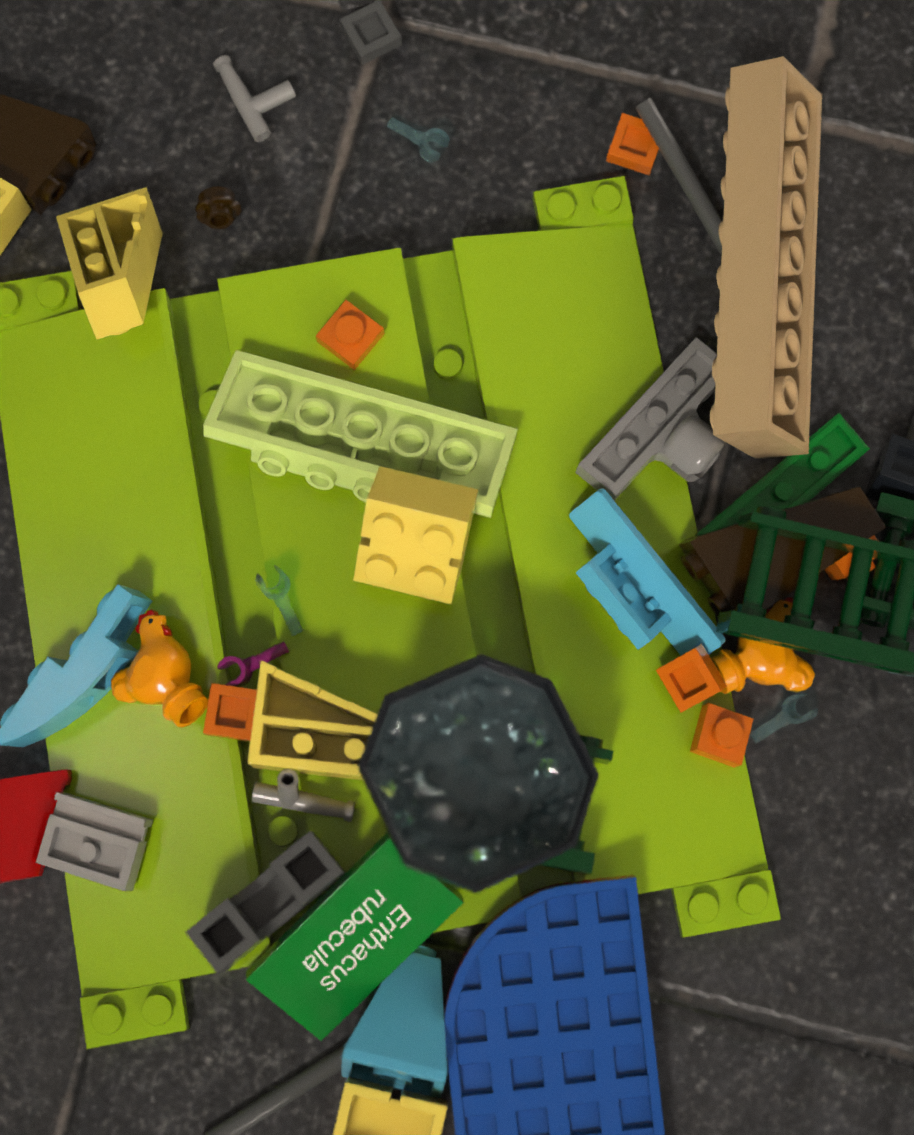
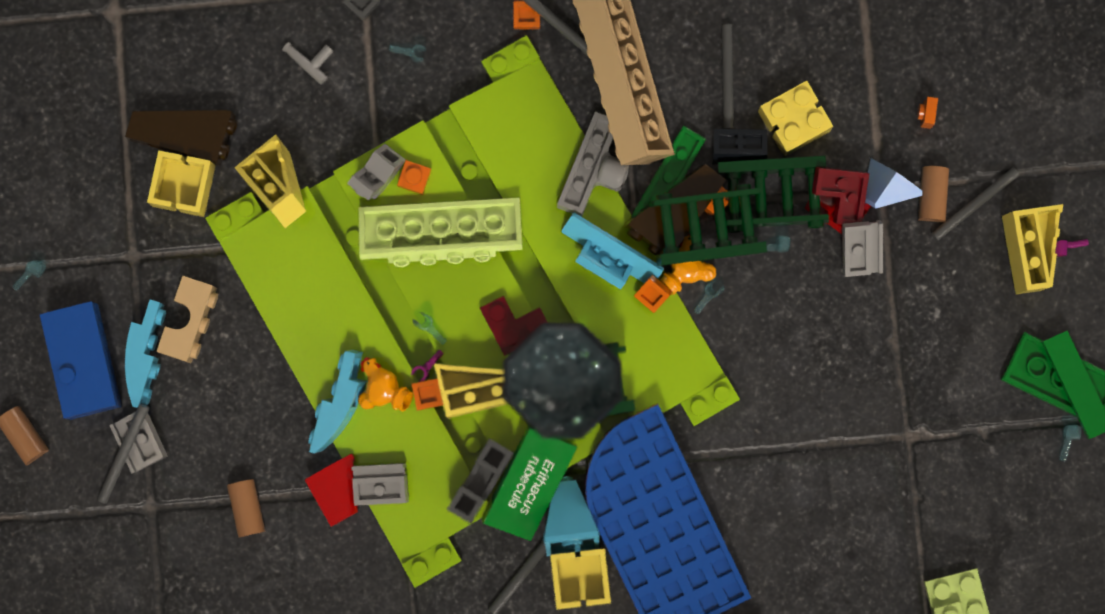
camera: 15 degrees left, 5 degrees up
(217, 207) = (315, 130): dark brown plate -> none
(288, 796) = (471, 426): light grey piece -> none
(289, 303) = (377, 173): none -> light grey brick
(412, 642) = (508, 330): none -> dark red plate
(414, 534) = (487, 272): light yellow piece -> none
(721, 735) = (678, 317): orange plate -> none

